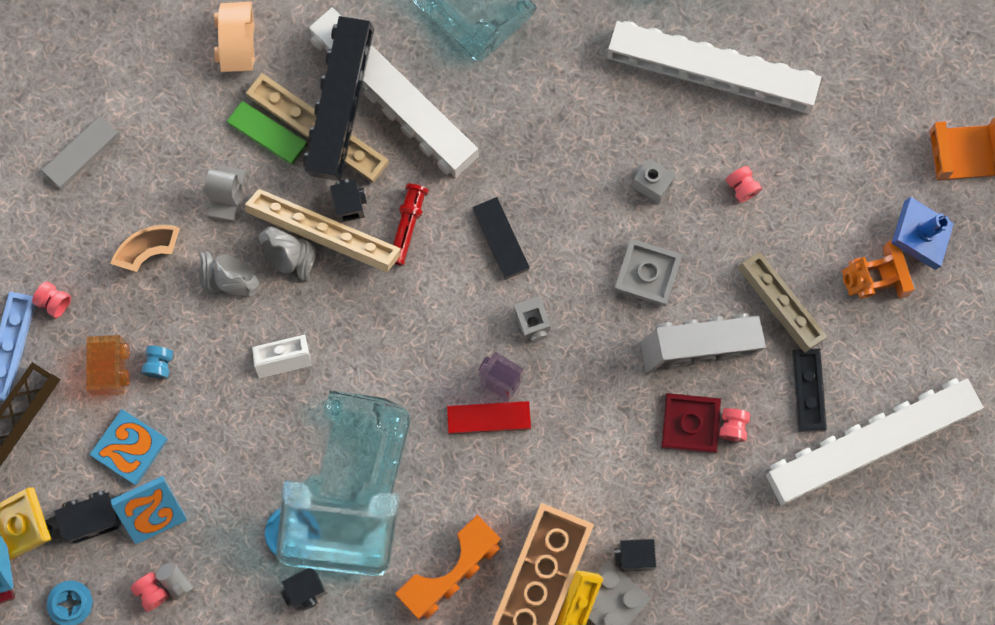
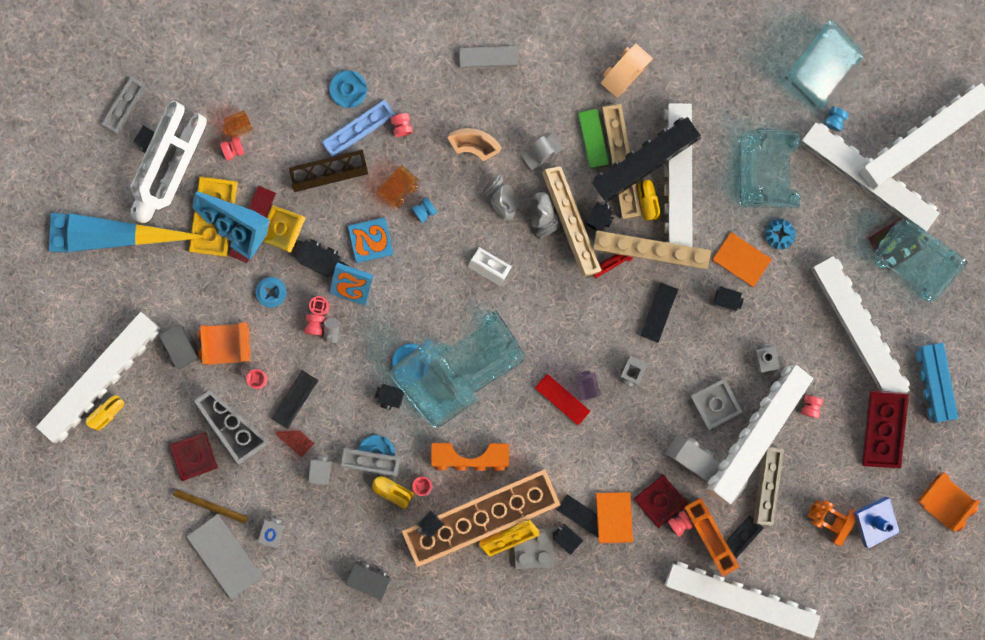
camera: 40 degrees right, 10 degrees up
(139, 569) = (319, 308): none -> coral wheel
(382, 139) = (648, 200): none -> yellow arm
(432, 180) = (652, 250): none -> tan plate
(531, 111) = (742, 259): none -> orange piece
(540, 62) = (772, 238): none -> dark azure gear
(556, 159) = (728, 299): none -> black brick
(633, 515) = (579, 514): none -> black tile
(662, 485) = (614, 517): none -> orange piece
(721, 258) = (759, 434): none -> white brick
(796, 411) = (712, 537): none -> orange arch
(836, 136) = (885, 429): none -> dark red tile
(838, 47) = (937, 383): none -> dark azure brick

